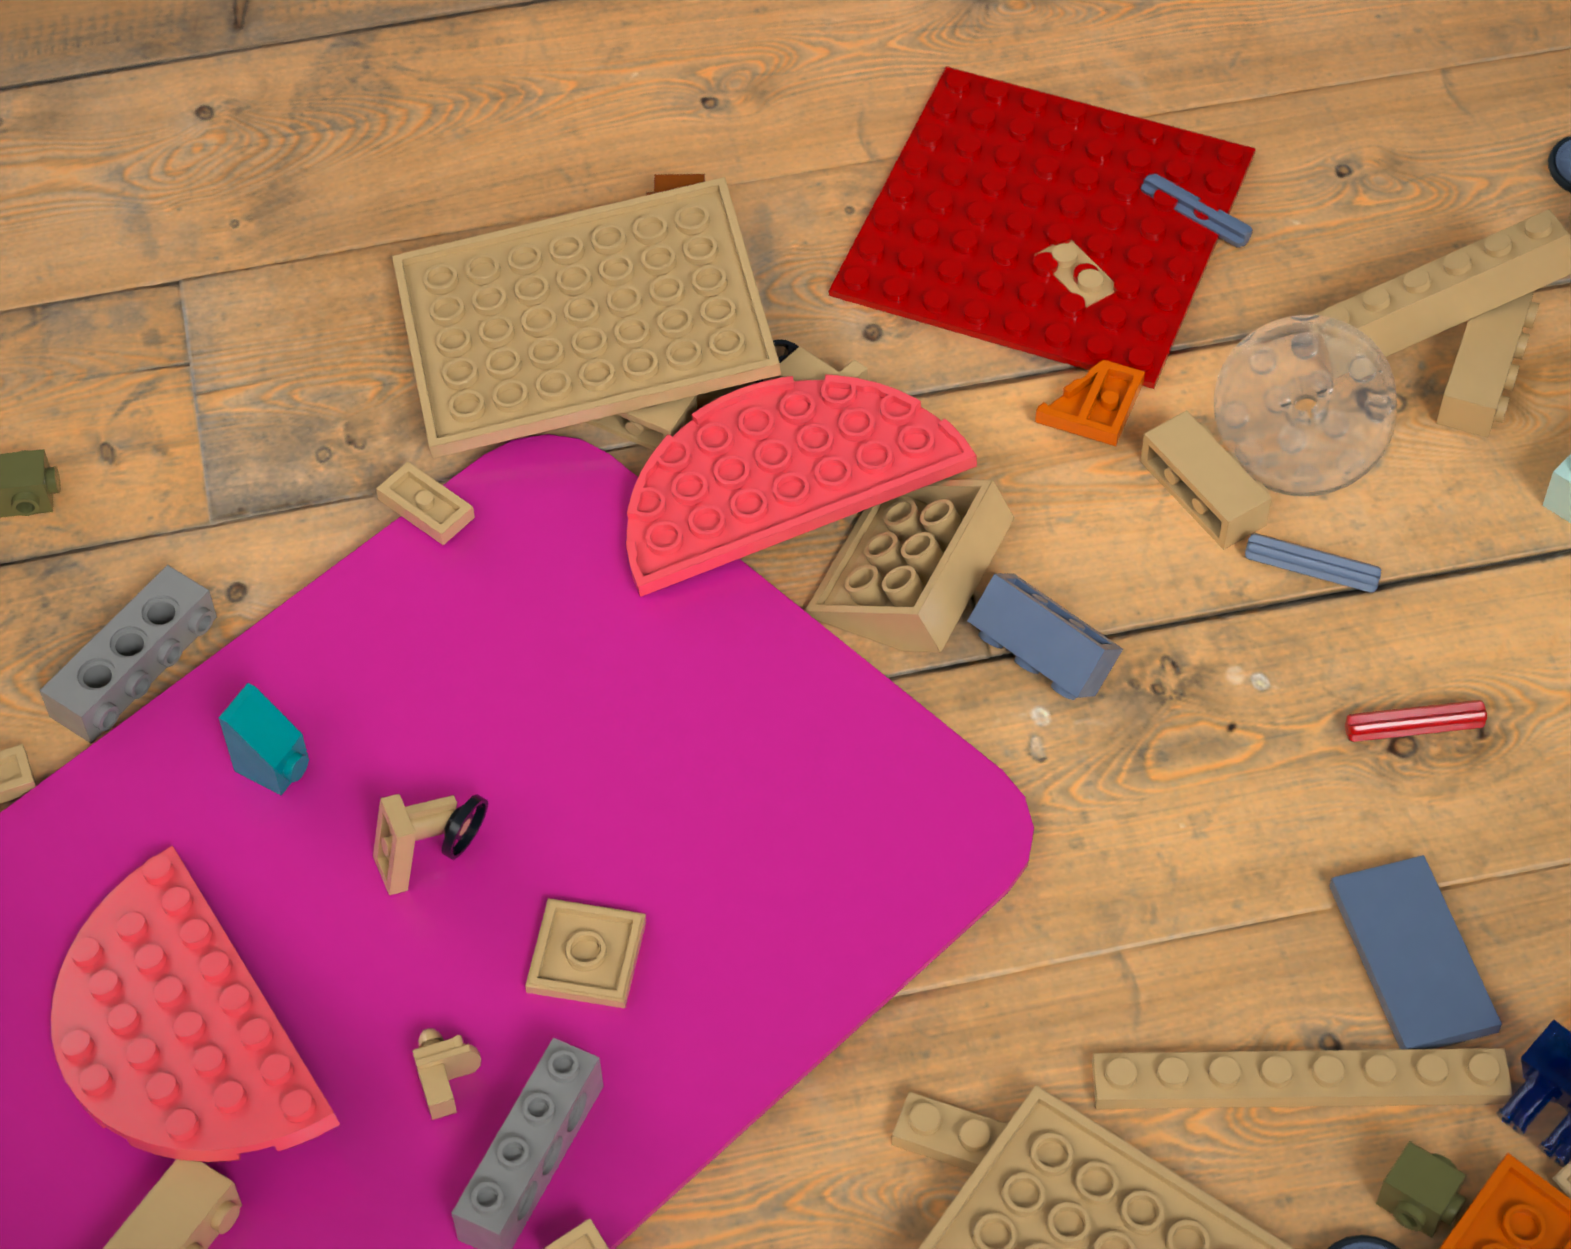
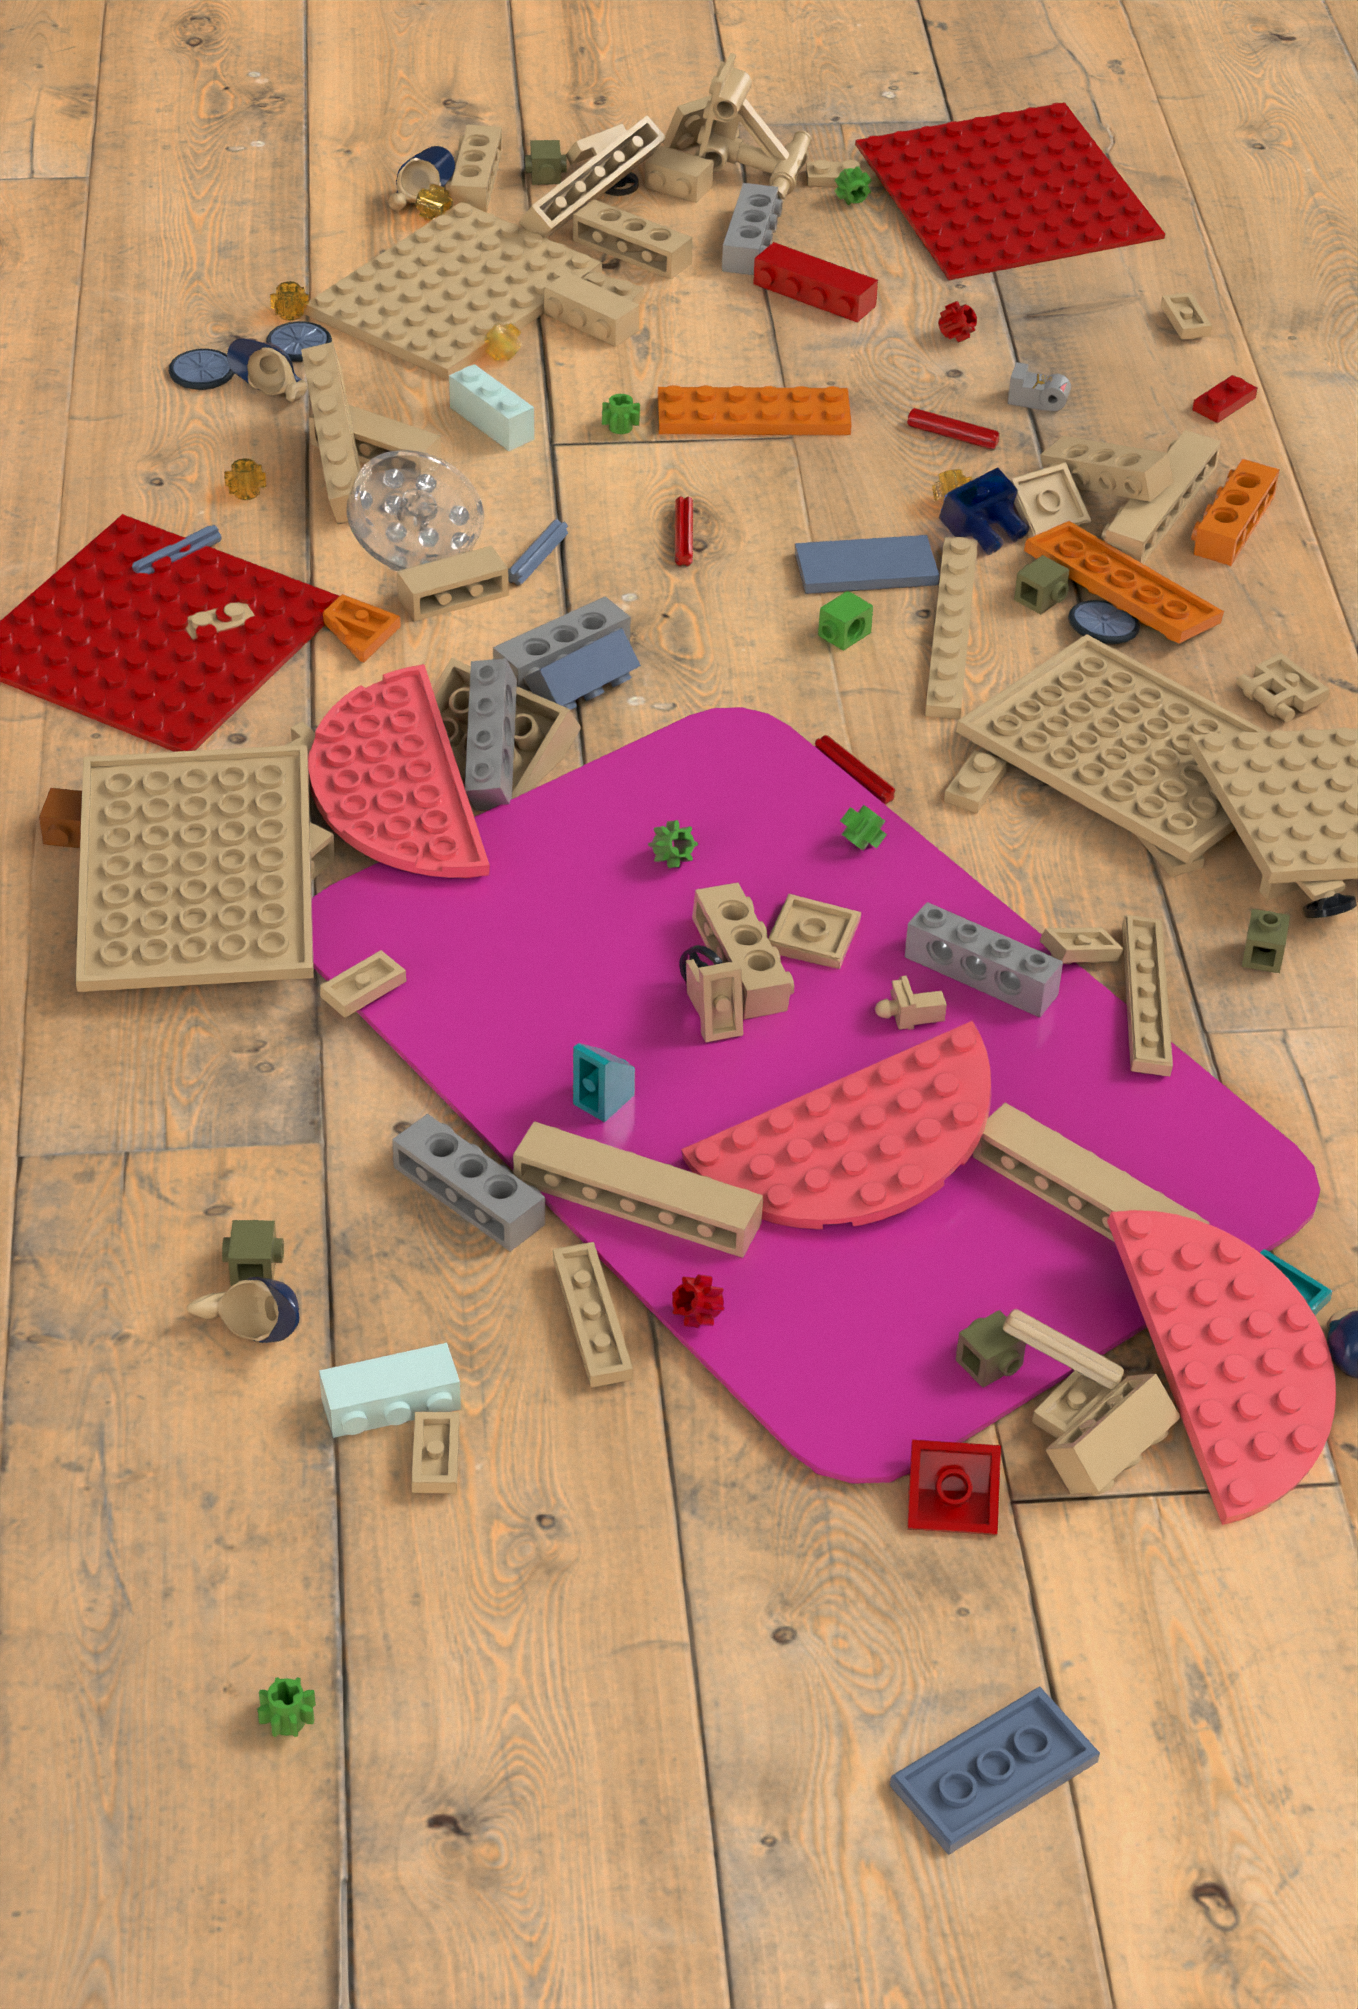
camera: 85 degrees left, 10 degrees down
(99, 810) = (639, 1189): none -> tan brick
(535, 846) = (735, 934): none -> tan brick
(705, 769) = (683, 844): none -> bright green gear
(775, 982) = (863, 827): none -> bright green gear
(862, 544) = (490, 733): none -> light grey brick
(937, 978) = (856, 769): none -> red axle
(1092, 589) = (561, 637): none -> light grey brick
(1253, 931) = (845, 620): none -> bright green brick
(1354, 241) = (245, 479): none -> clear yellow gear

